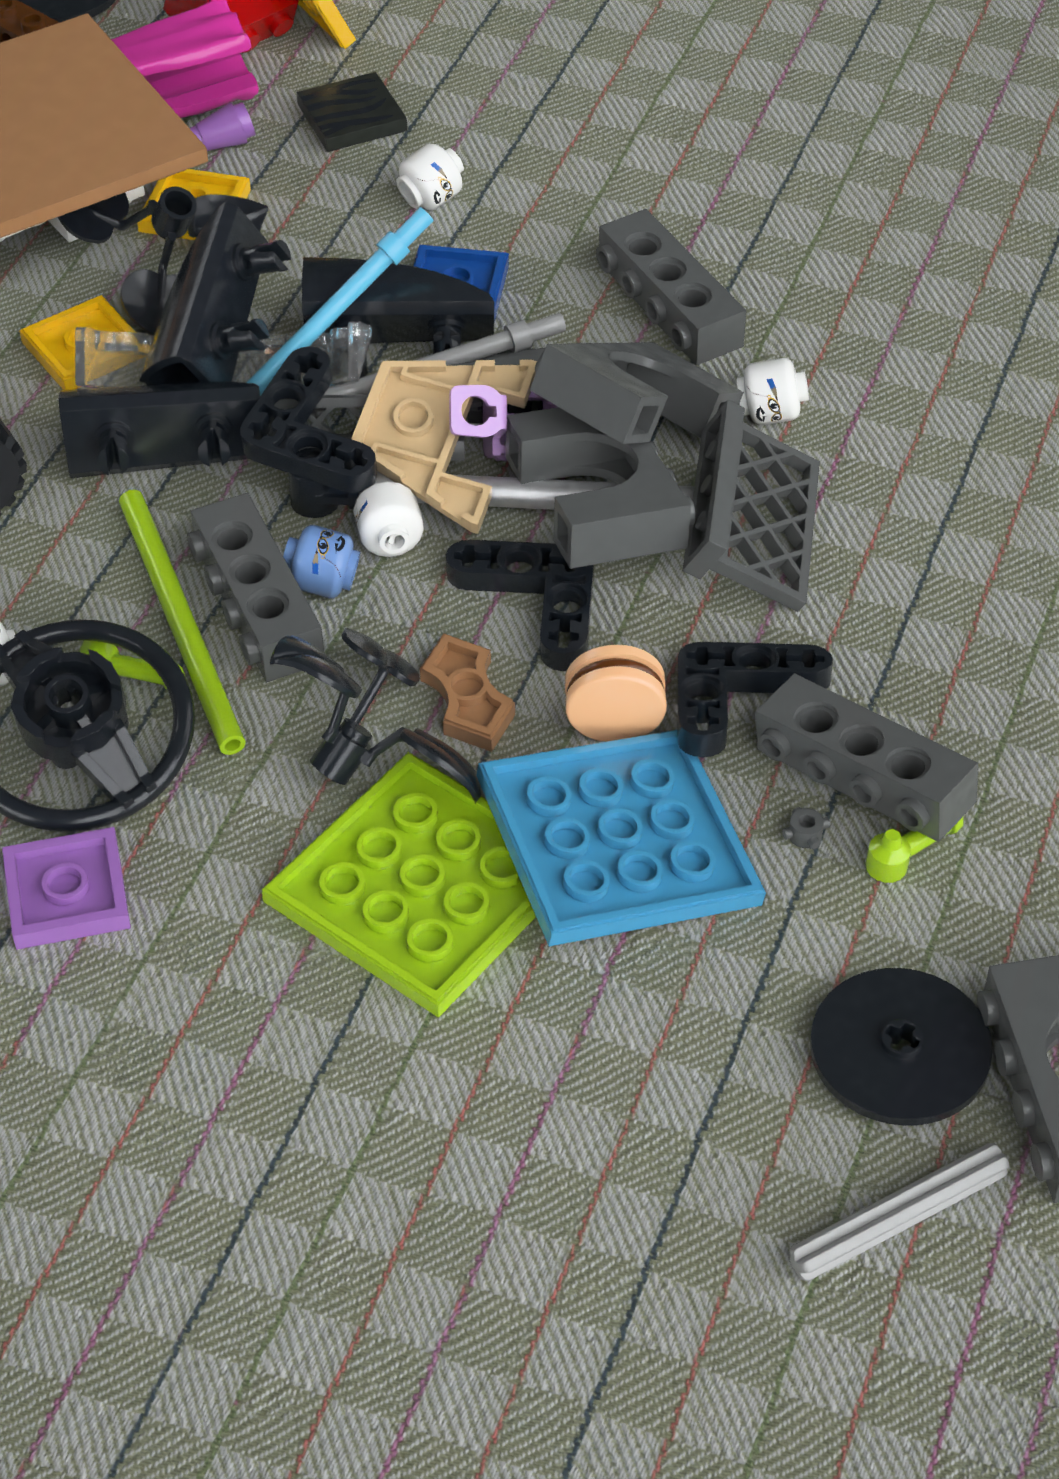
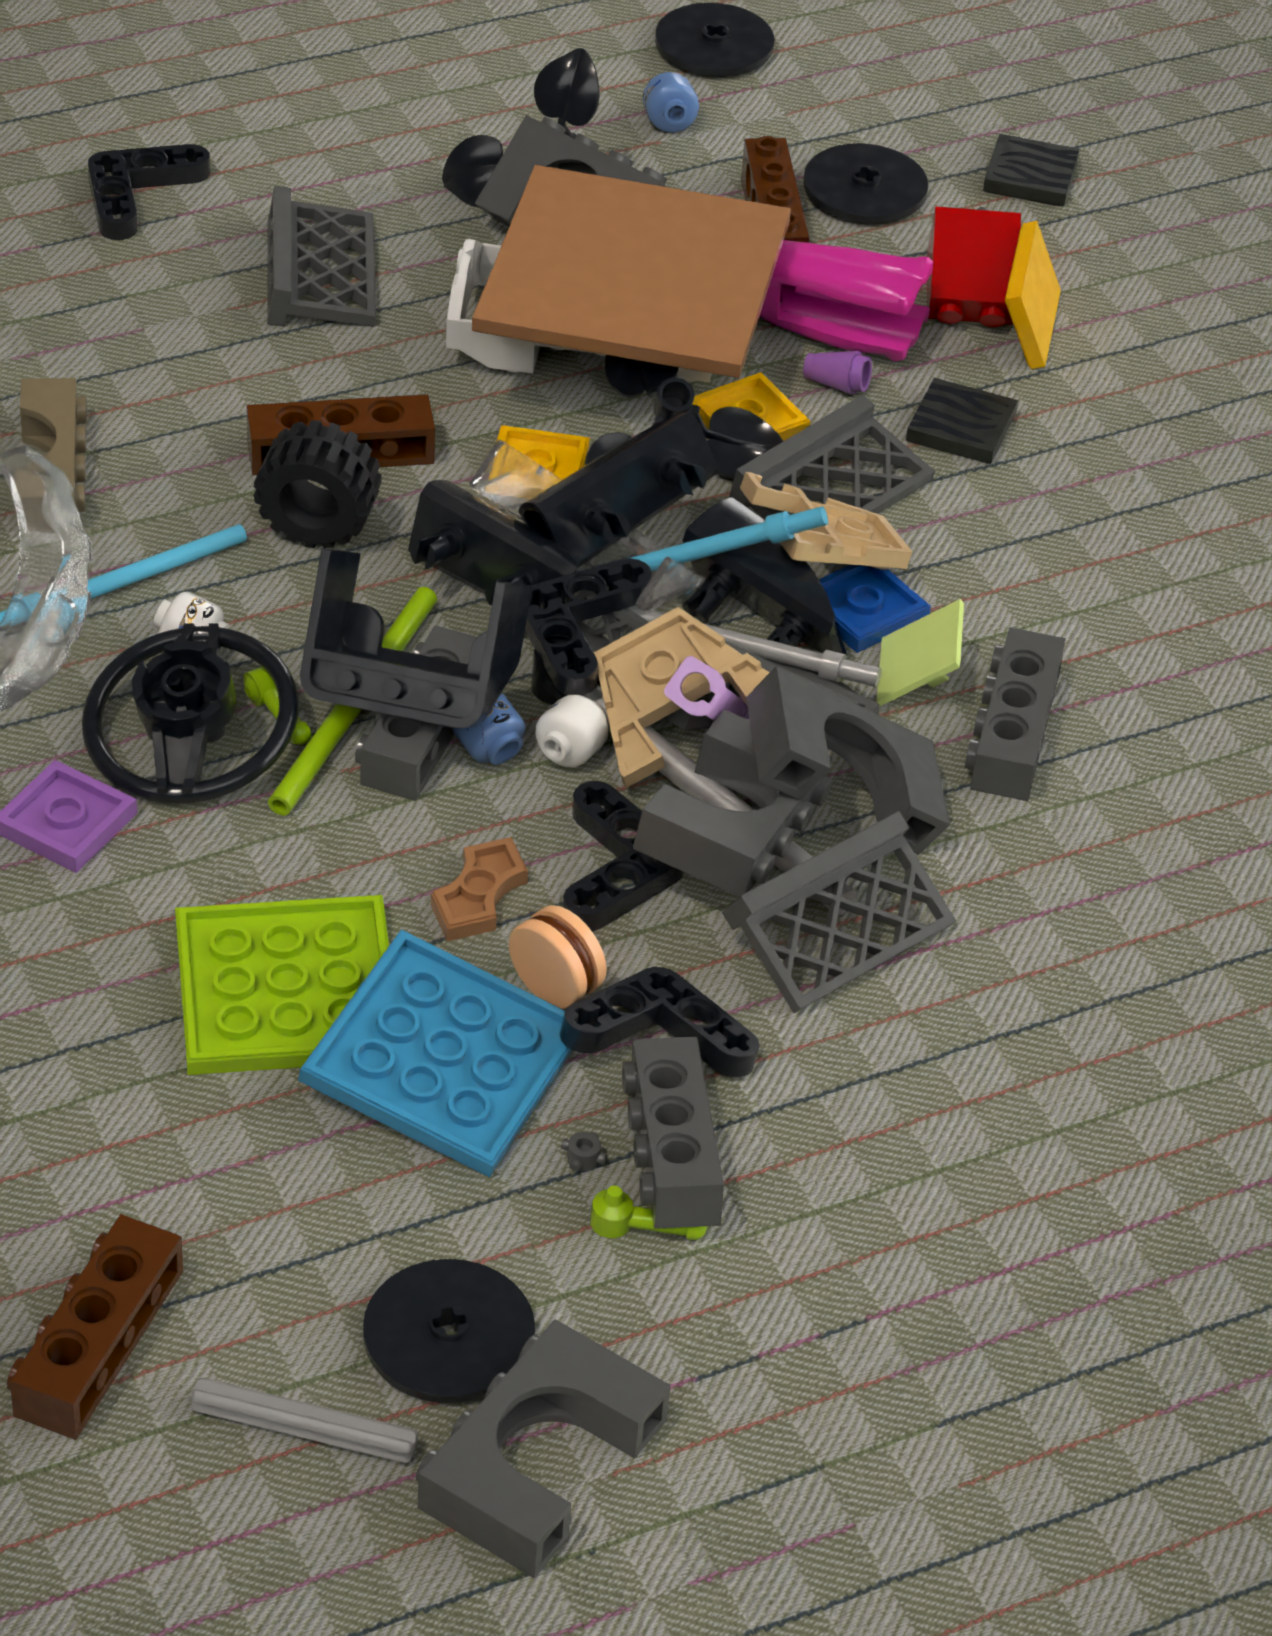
camera: 40 degrees right, 5 degrees down
(241, 567) = (351, 668): none -> black windscreen
(286, 194) = (838, 437): none -> dark grey fence
(347, 743) = (338, 855): black plant -> none
(369, 230) = (849, 538): none -> tan wing
(430, 177) = (944, 507): white head -> none
(557, 280) = (921, 653): none -> yellowish green piece
(687, 1372) = (95, 1326): none -> reddish brown brick
(772, 391) = (983, 842): white head -> none

